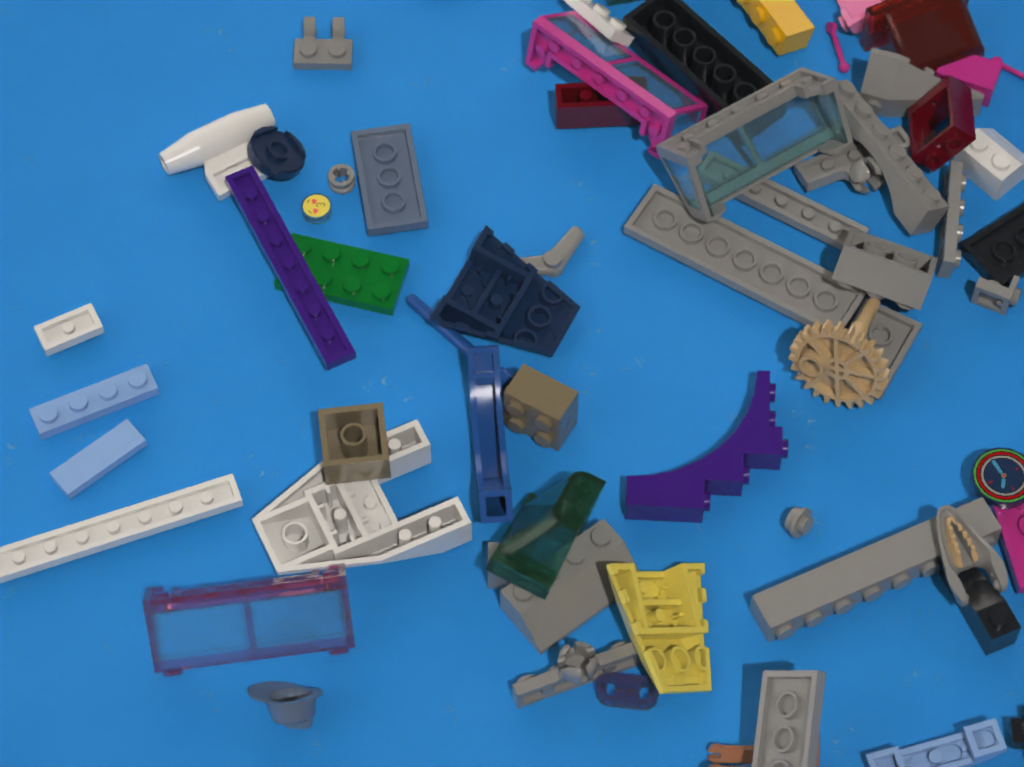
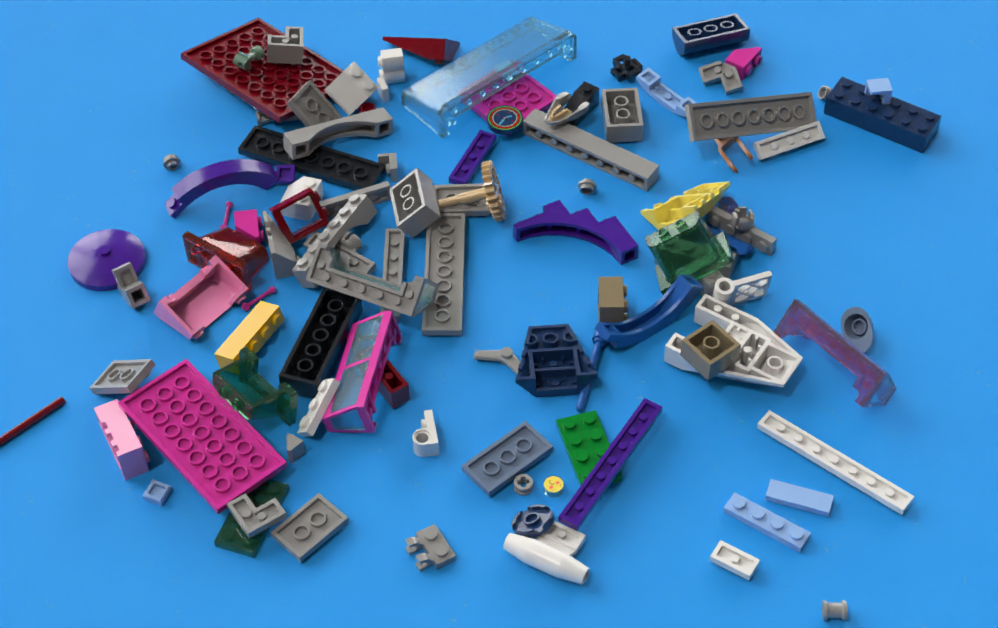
camera: 120 degrees left, 10 degrees down
(455, 566) = (730, 293): none -> white piece
(480, 115) = (425, 439): none -> white plate
(595, 630) = (741, 246): none -> blue plate
(919, 648) = (622, 115): none -> light grey brick
(952, 405) = (472, 158): none -> dark purple plate

